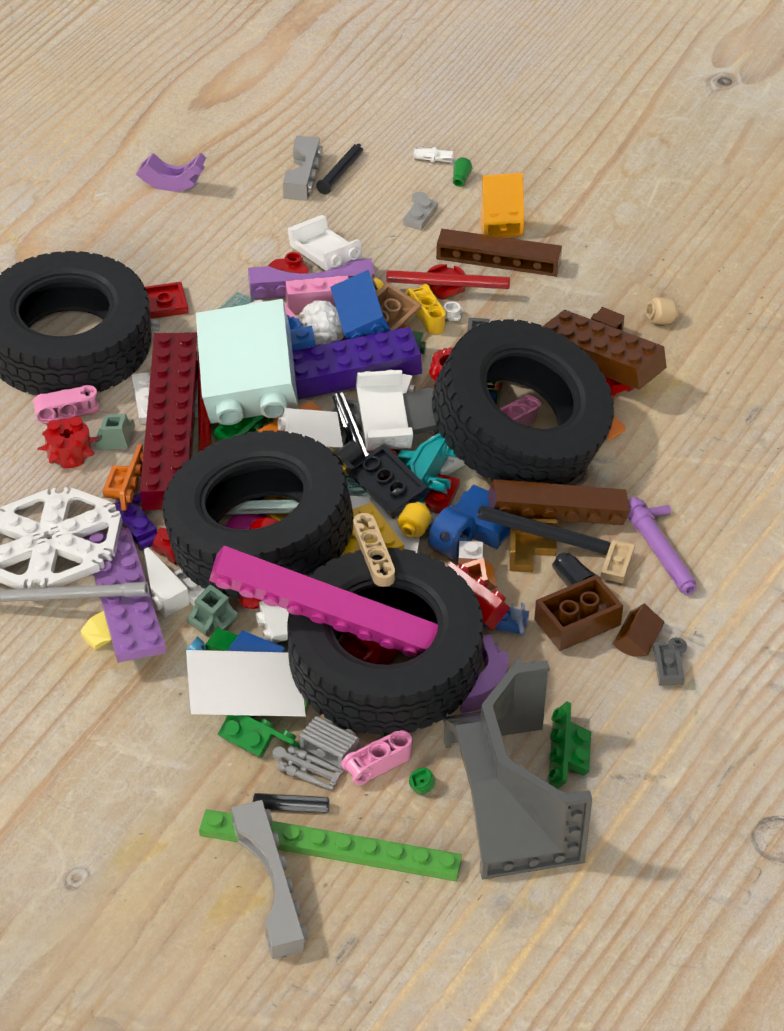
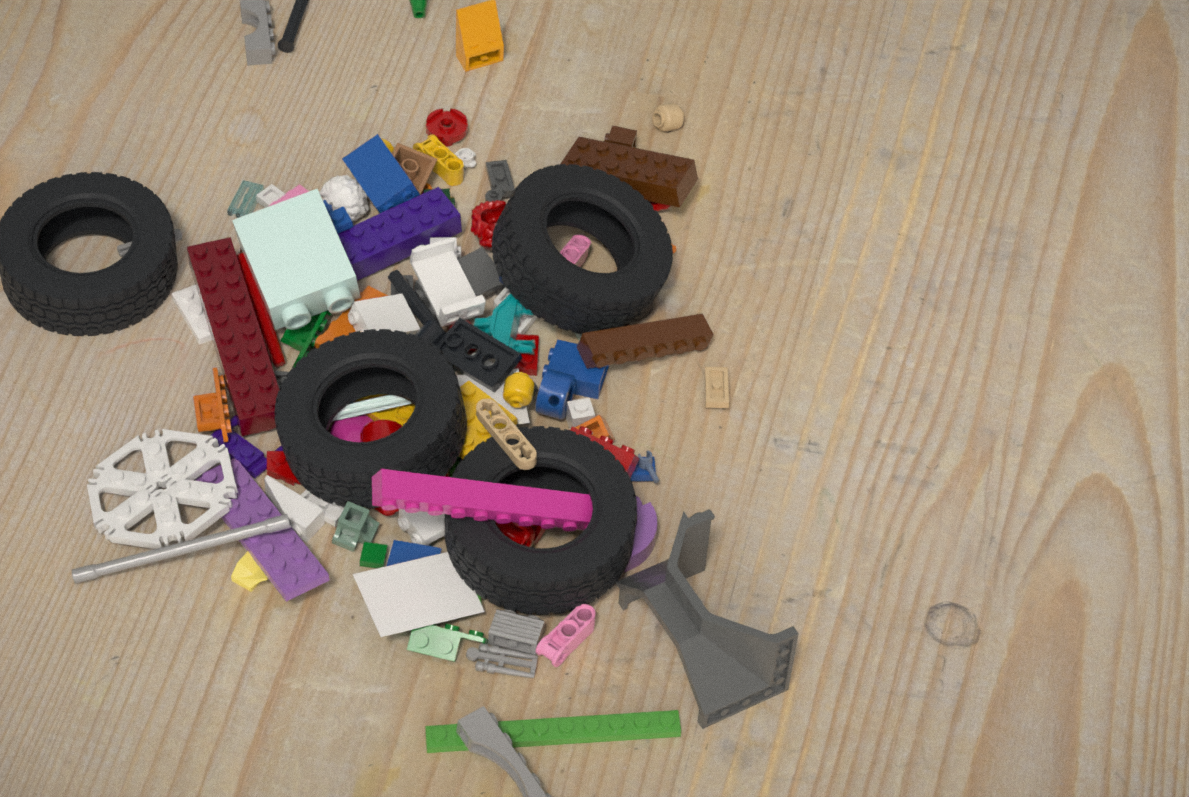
camera: 20 degrees left, 5 degrees up
(65, 403) = (118, 339): bright pink piece -> none
(67, 442) = (138, 381): red brick -> none
(115, 432) = (182, 361): sand green brick -> none
(167, 300) = (178, 201): red tile -> none
(169, 177) = (124, 65): medium lavender arch -> none
(197, 644) = (351, 567): dark azure hinge -> none
(270, 283) = (273, 164): medium lavender arch -> none
(291, 263) = (284, 142): red plate -> none
(293, 802) = (502, 699): black axle -> none
(305, 291) = (318, 168): bright pink brick -> none
(322, 245) = (312, 112): white panel -> none
(420, 212) = (393, 53): light grey hinge -> none
(422, 780) = (615, 648): green tile -> none
(446, 279) = (452, 125): red axle -> none
(499, 252) = (488, 85): reddish brown brick -> none
(525, 545) = (626, 383): pearl gold panel -> none
(542, 529) = (640, 372): black axle -> none
(568, 747) = (736, 582): green bracket -> none
(571, 569) = (685, 411): black plant -> none
(578, 612) = (701, 448): reddish brown brick -> none
(639, 632) = (760, 453): reddish brown brick -> none
(643, 520) = (725, 340): medium lavender cylinder -> none
(669, 662) = (798, 477): dark grey hinge -> none

